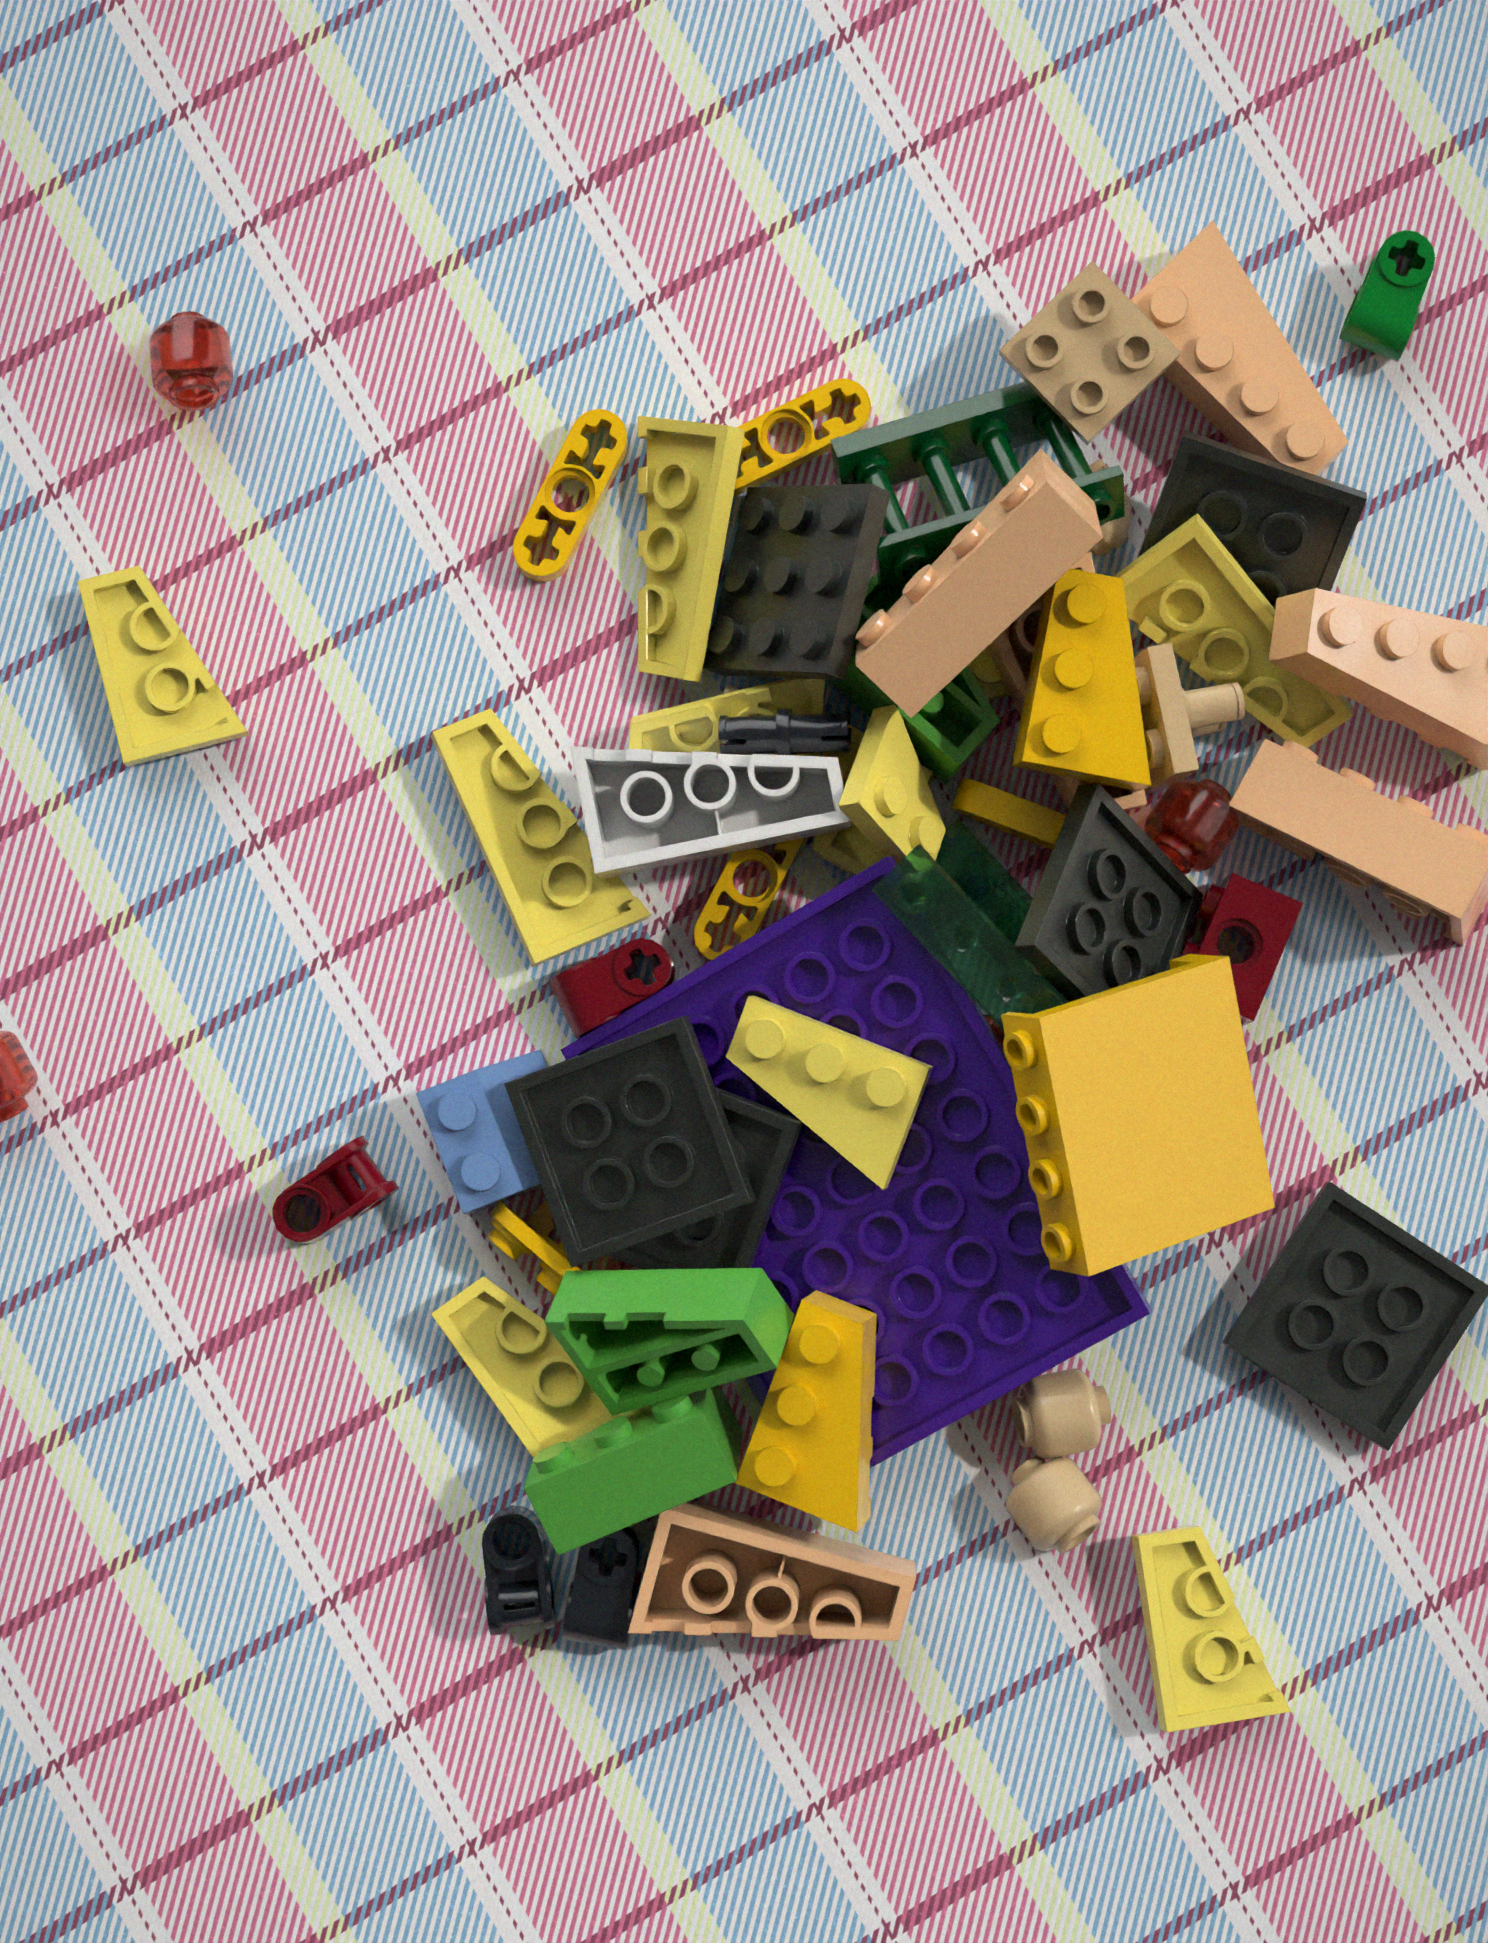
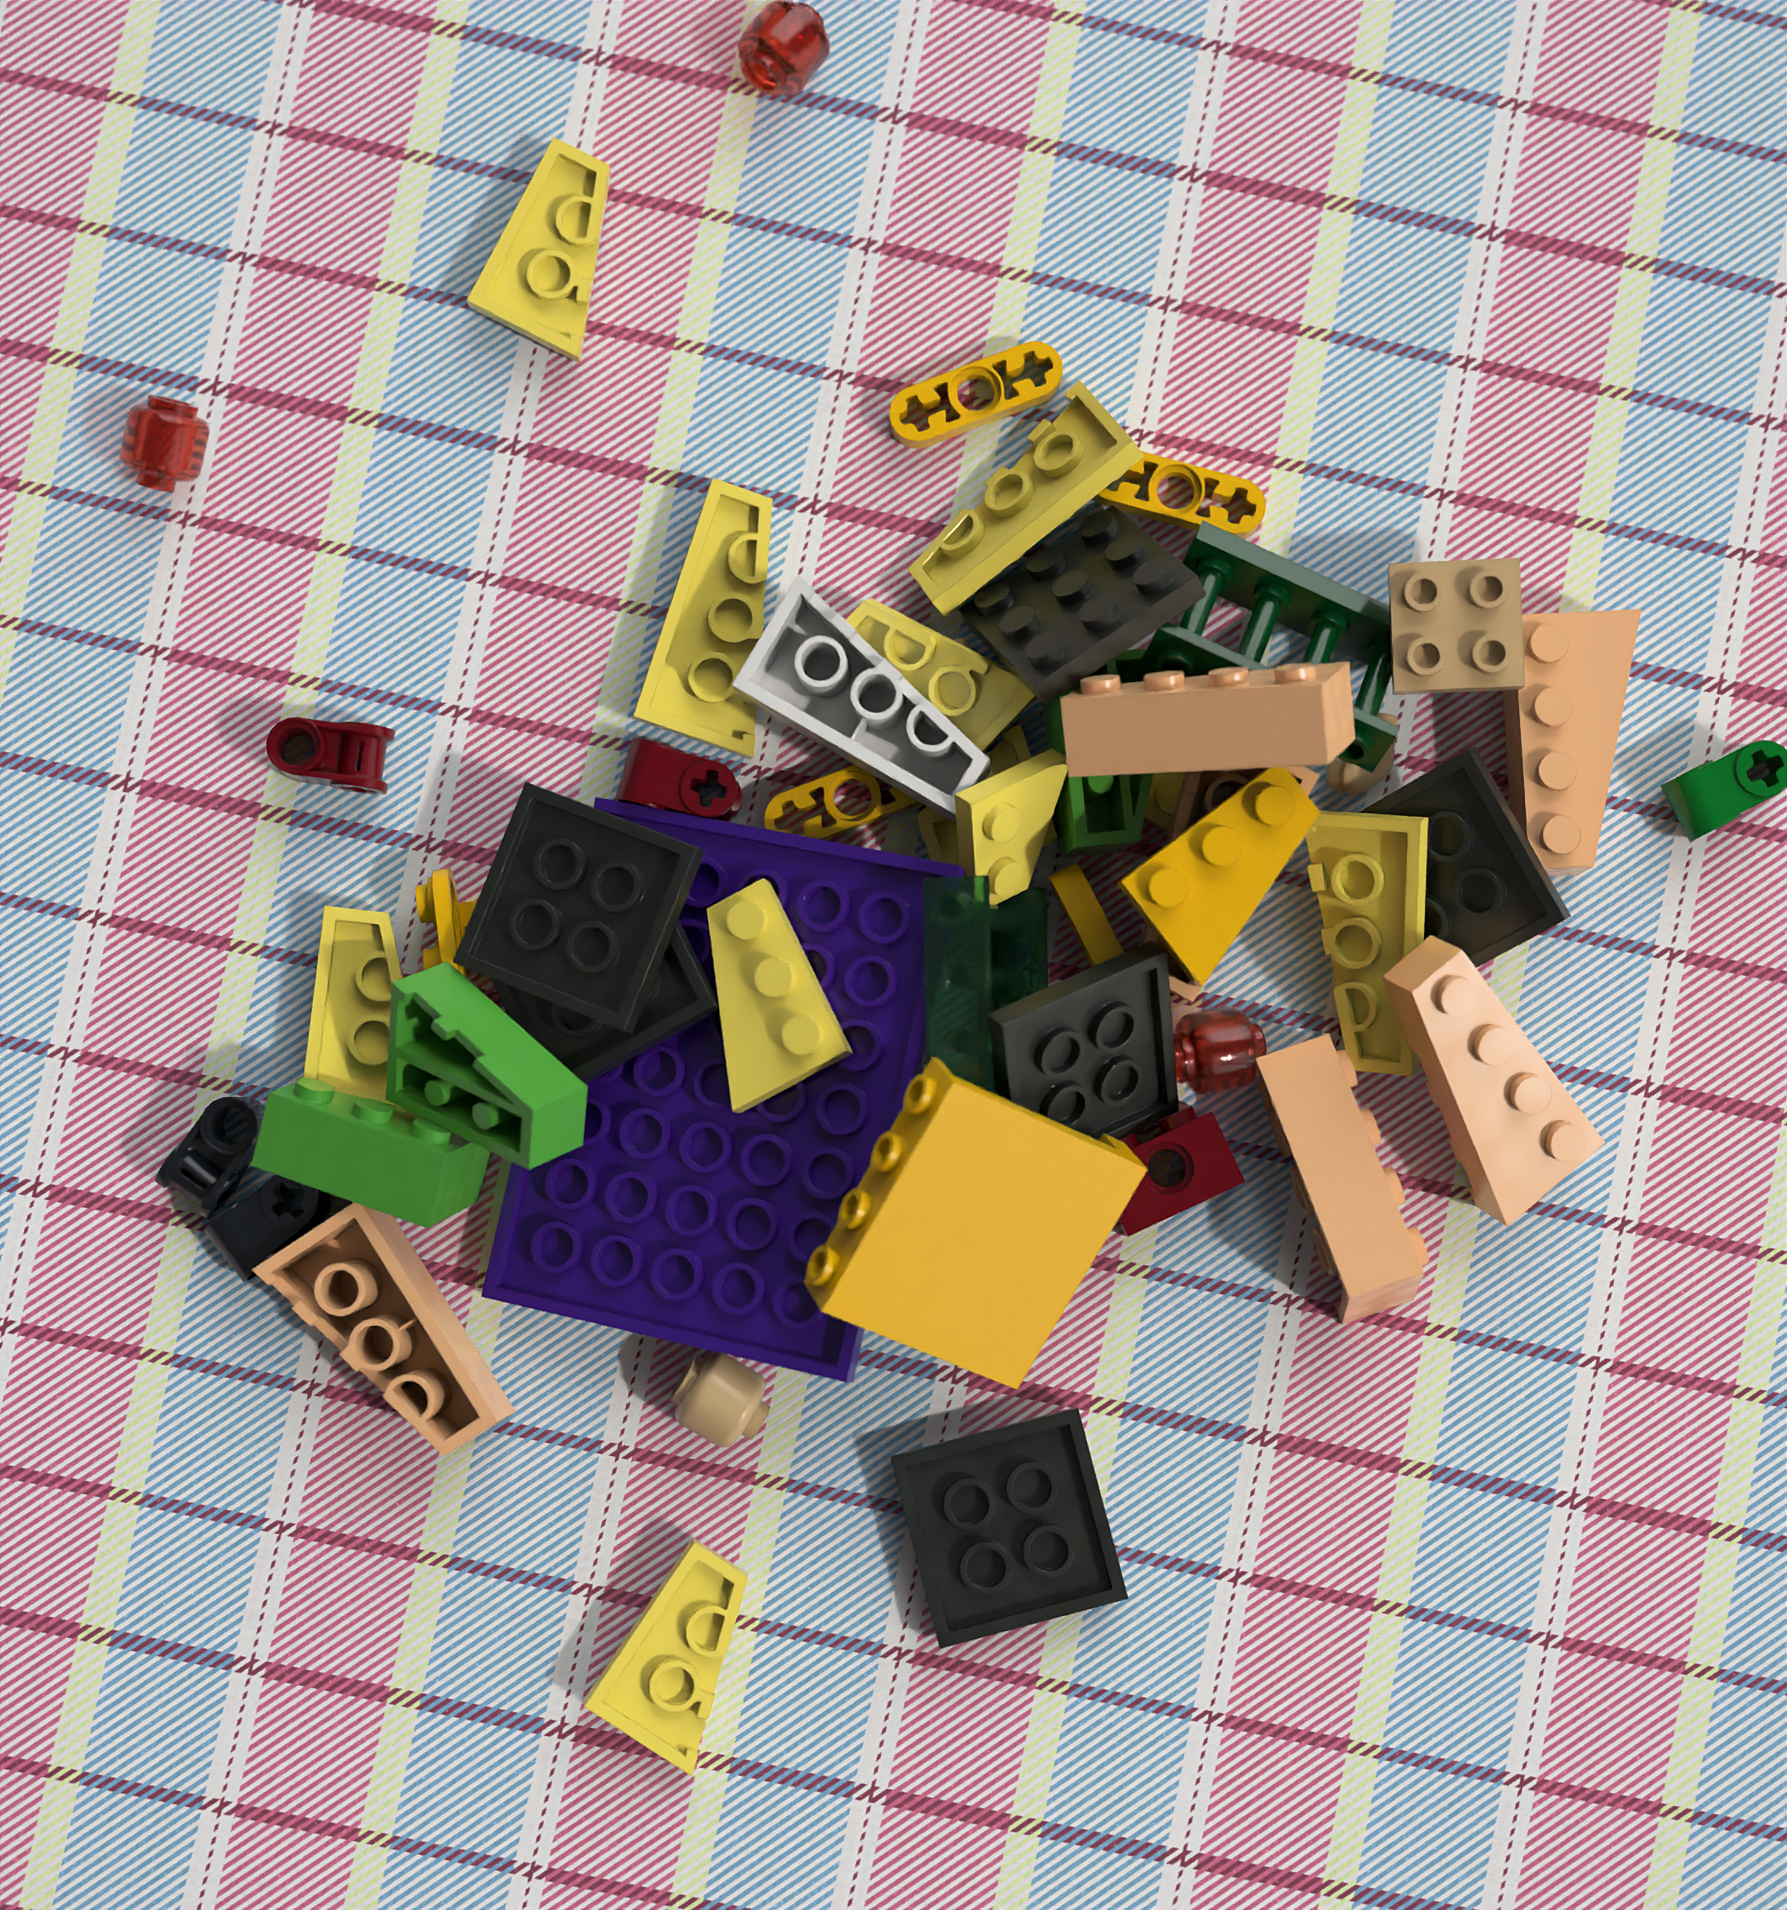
camera: 40 degrees right, 0 degrees up
(481, 1133) = (476, 804): medium blue slope -> none
(785, 733) = (969, 708): black pin -> none
(816, 1418) = (534, 1235): yellow wedge -> none
(1053, 1503) = (655, 1461): tan head -> none
(1178, 715) = (1269, 952): tan plate -> none

